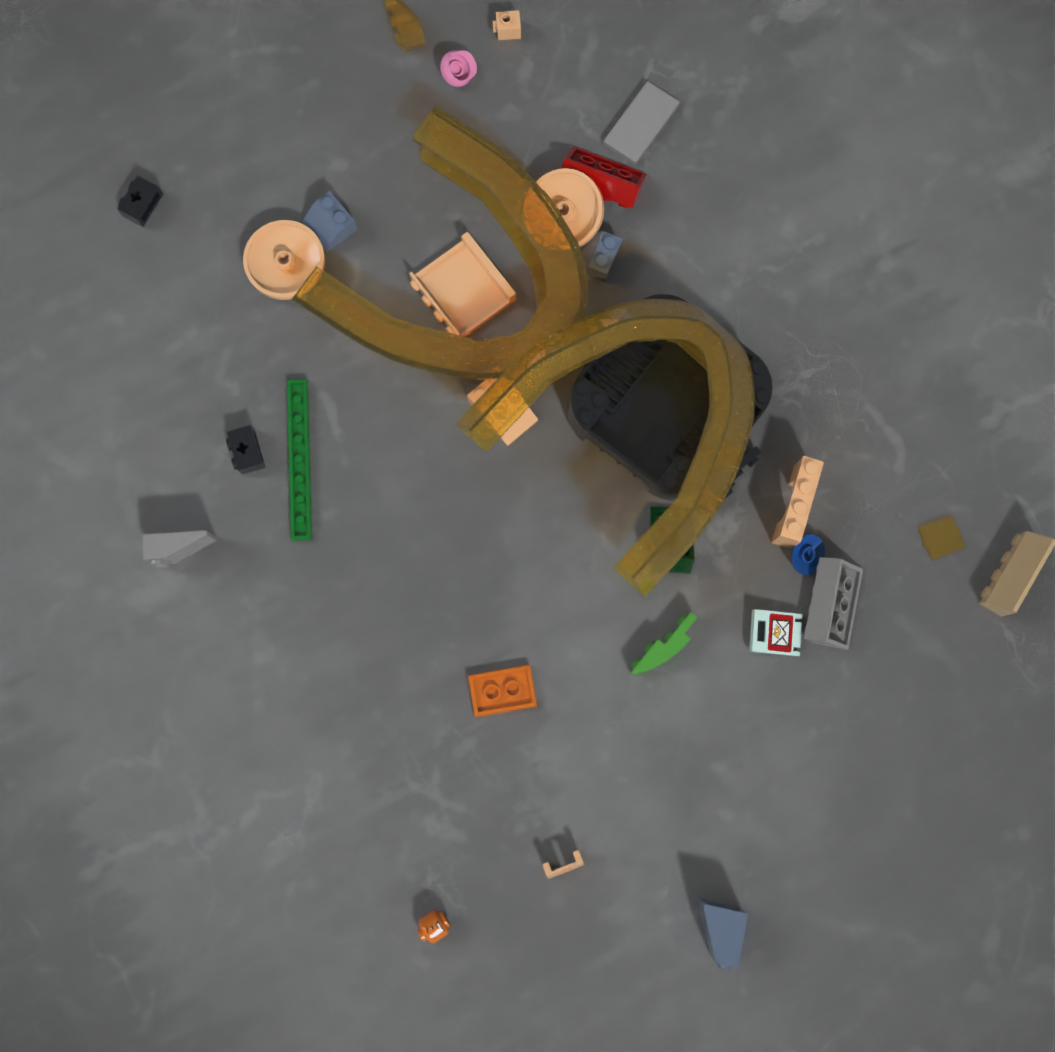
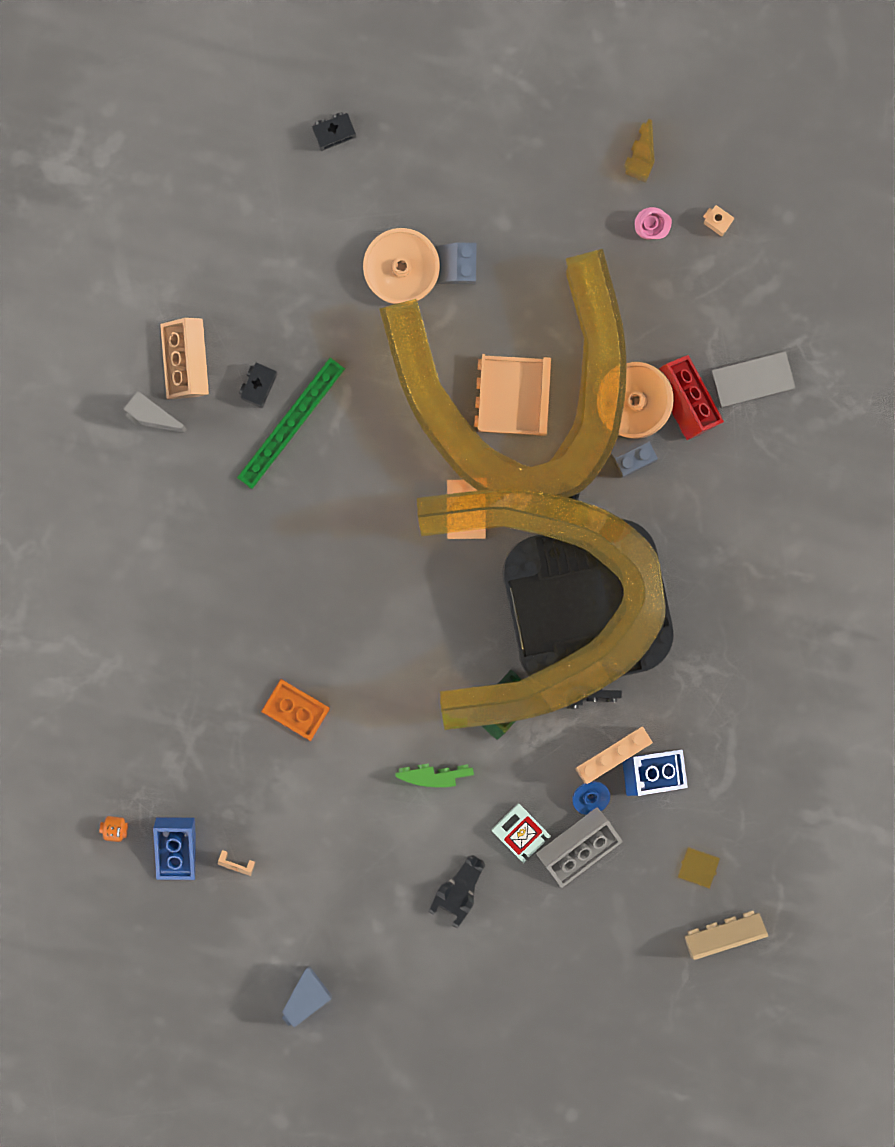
camera: 40 degrees right, 5 degrees up
(165, 479) = (184, 358): none -> light nougat slope
(500, 897) = (175, 848): none -> blue slope
(769, 727) = (458, 893): none -> black animal
(840, 491) = (654, 773): none -> blue slope

